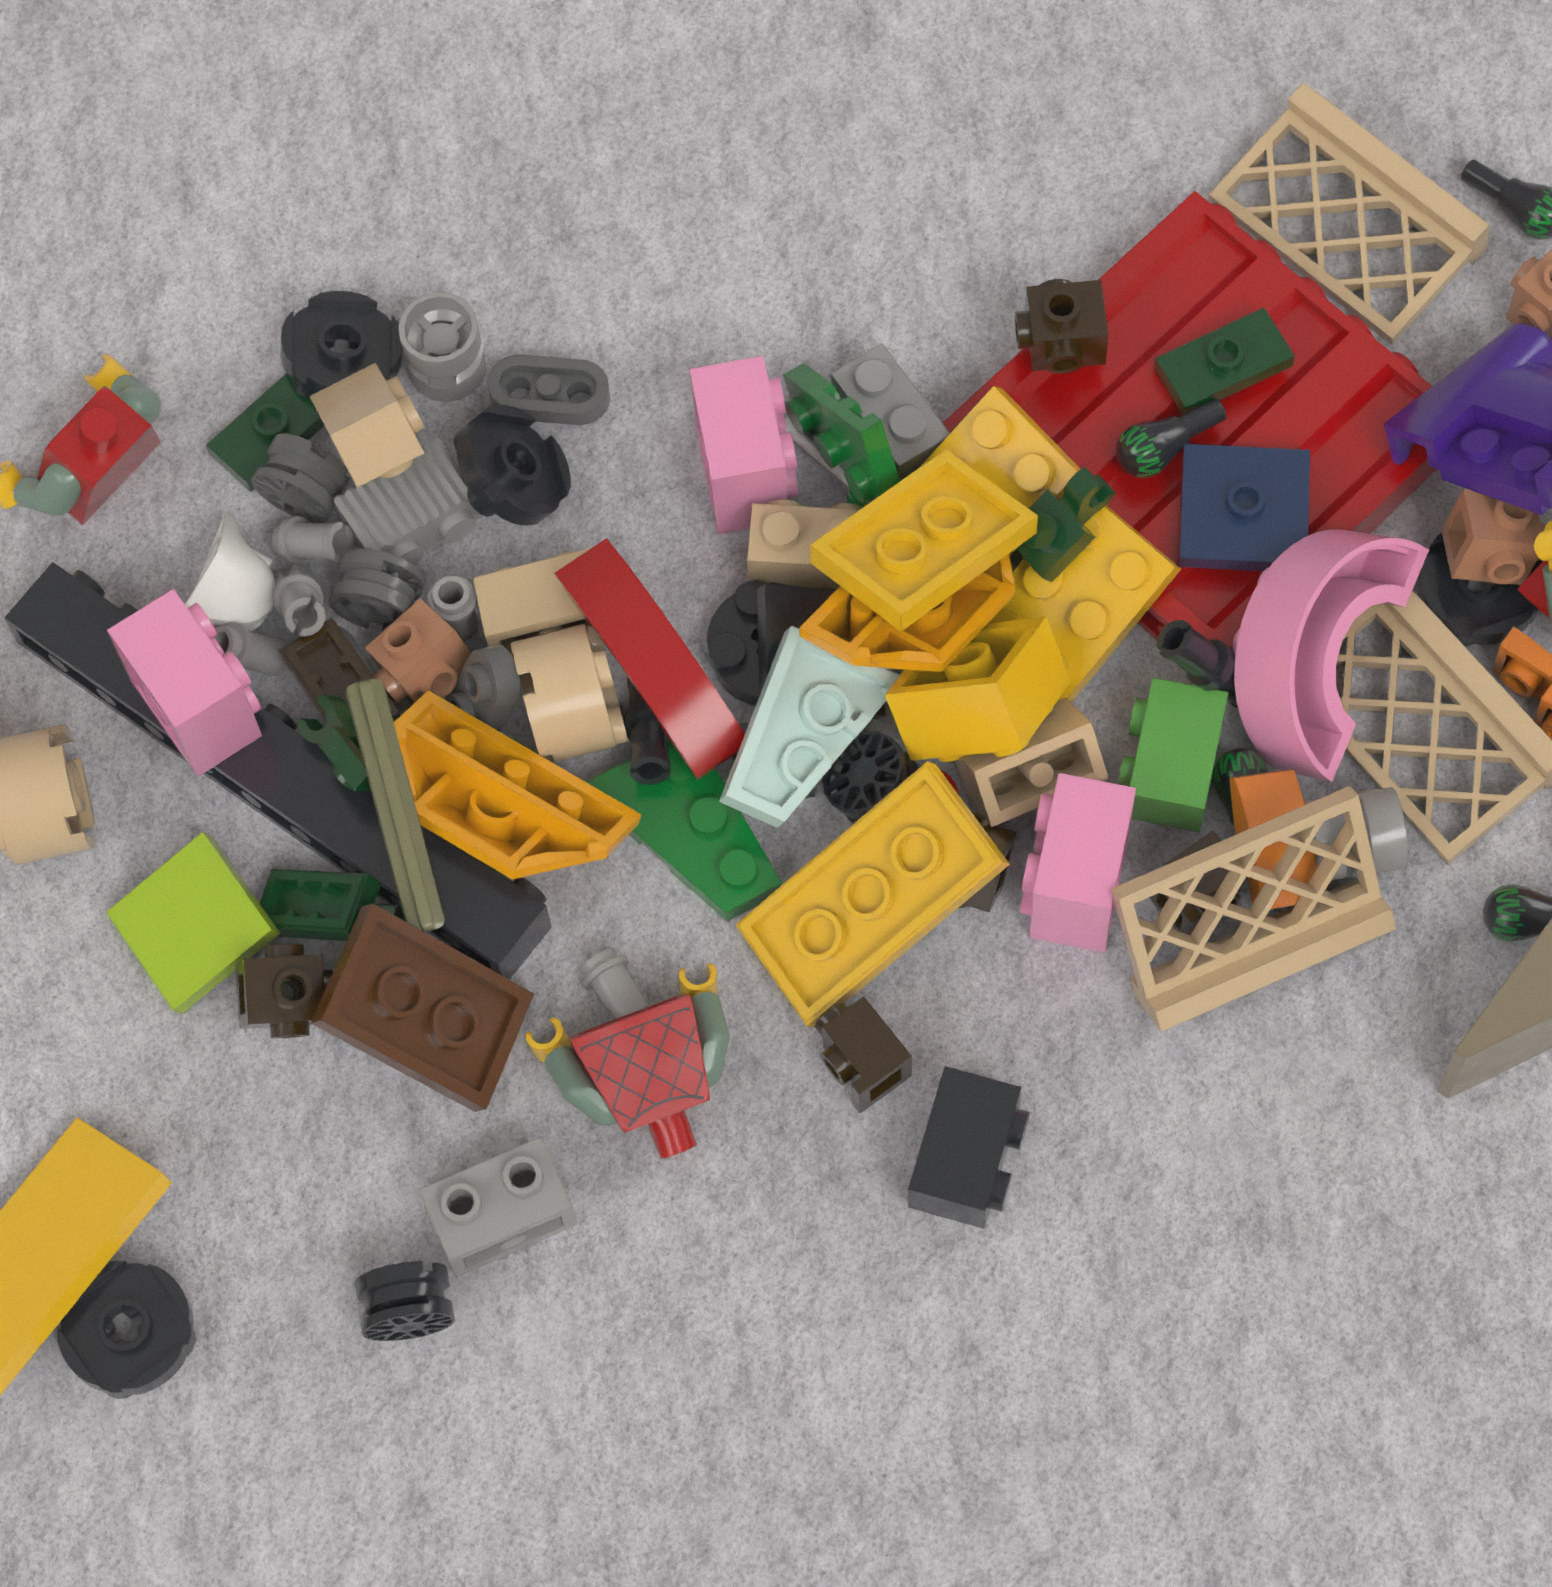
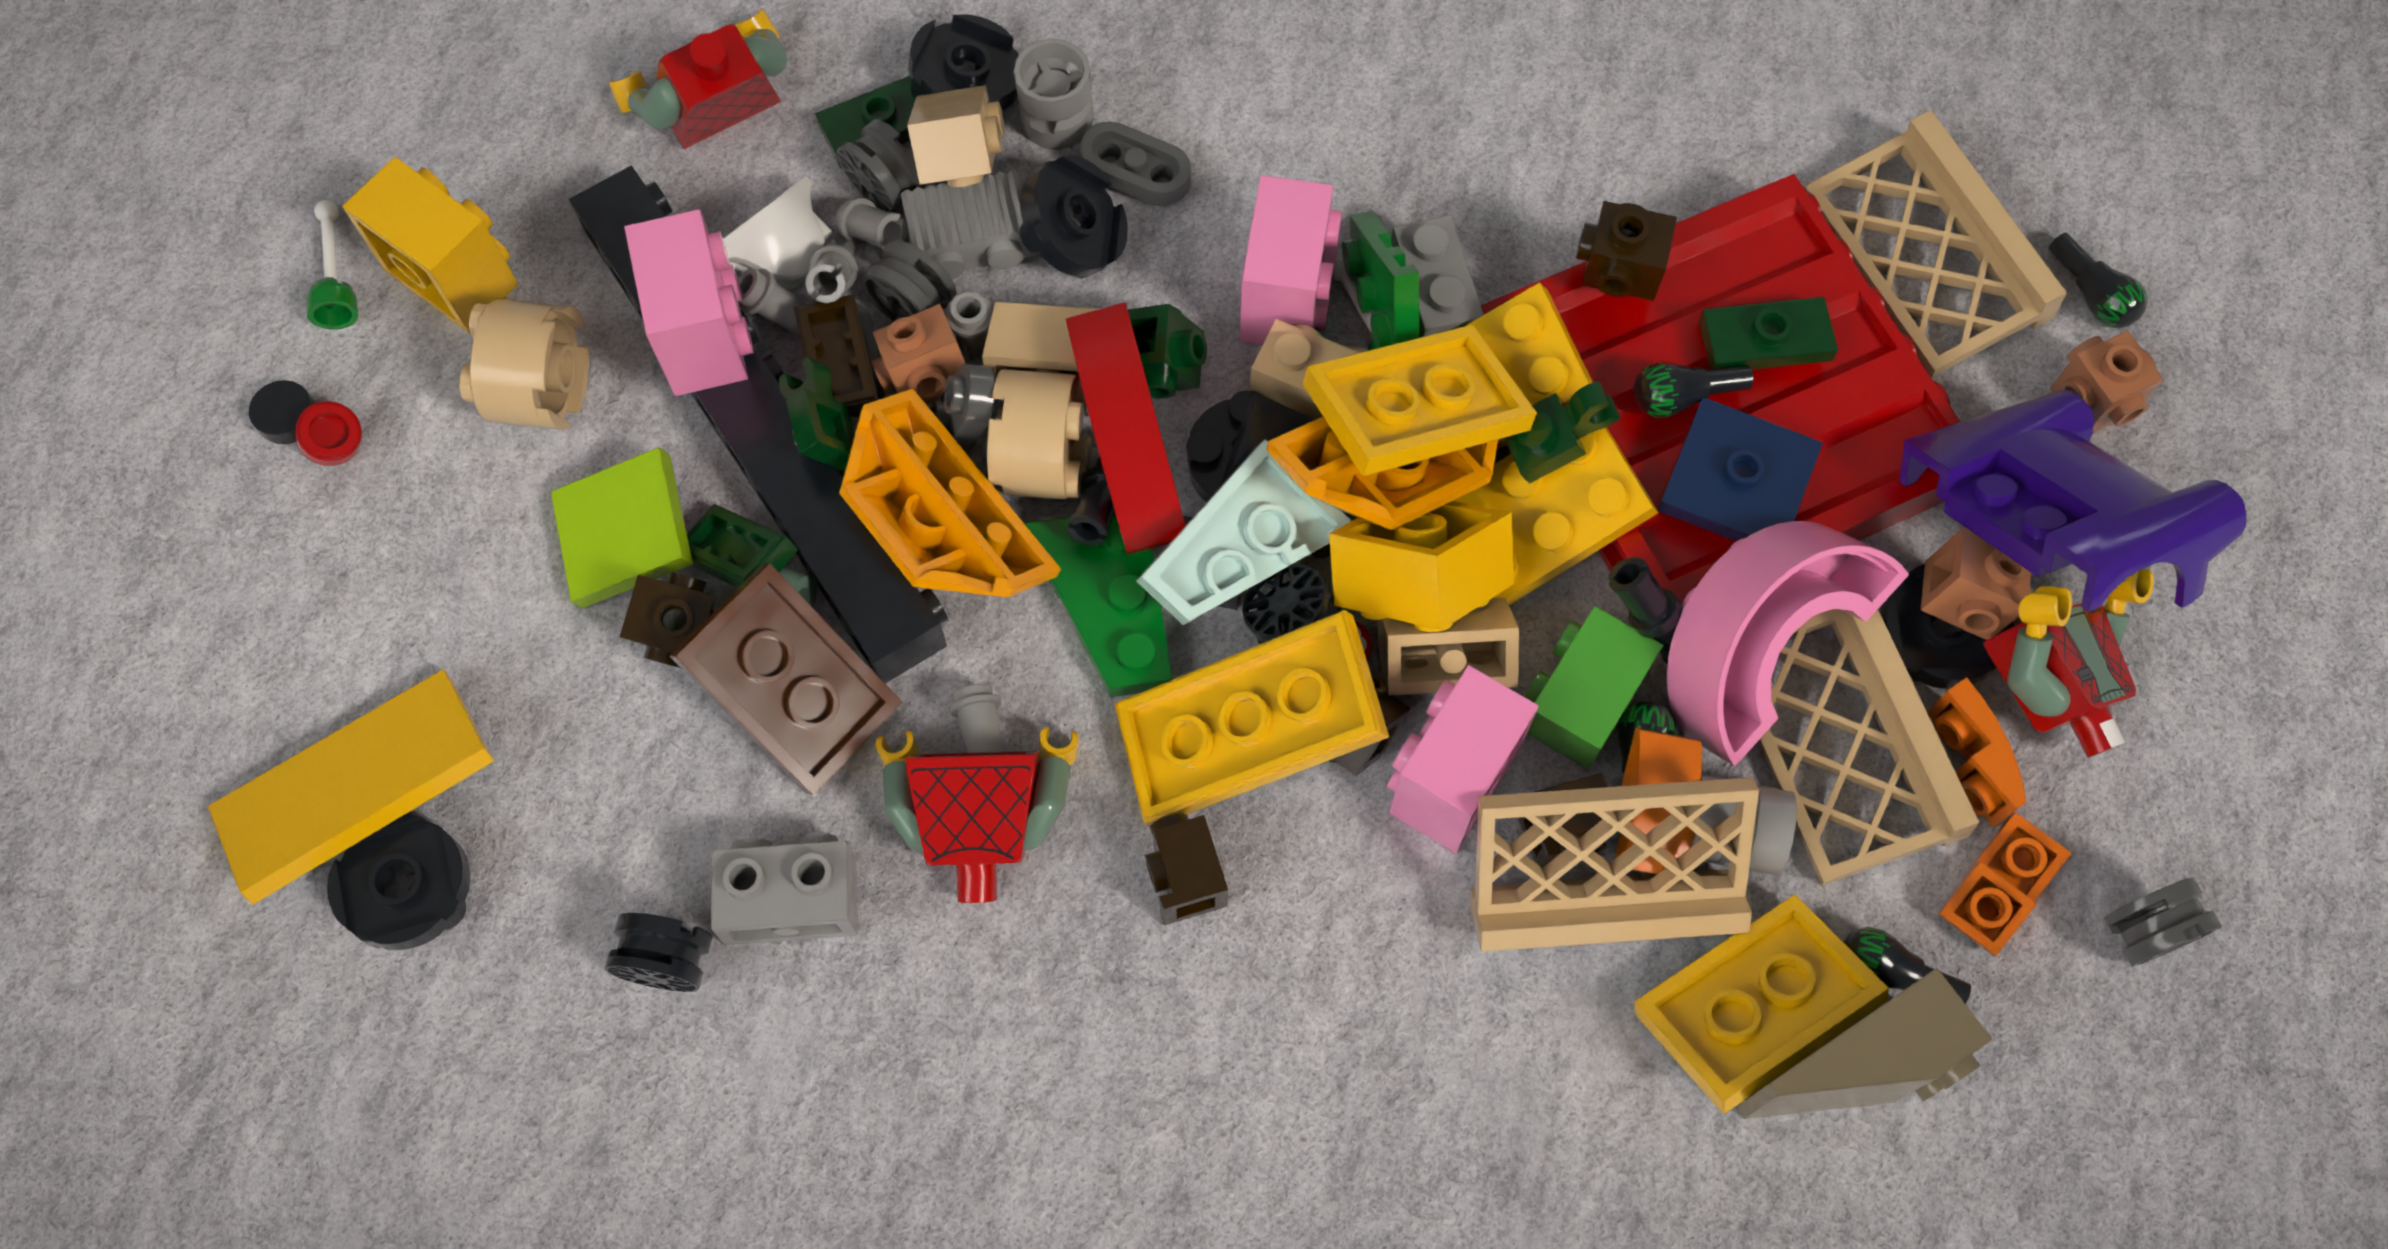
camera: 15 degrees right, 0 degrees up
(395, 804) = (830, 479): olive axle -> none
(661, 563) = (1169, 349): none -> dark green brick
(966, 1147) = (1249, 998): black brick -> none
(1424, 987) = (1760, 1003): none -> yellow plate

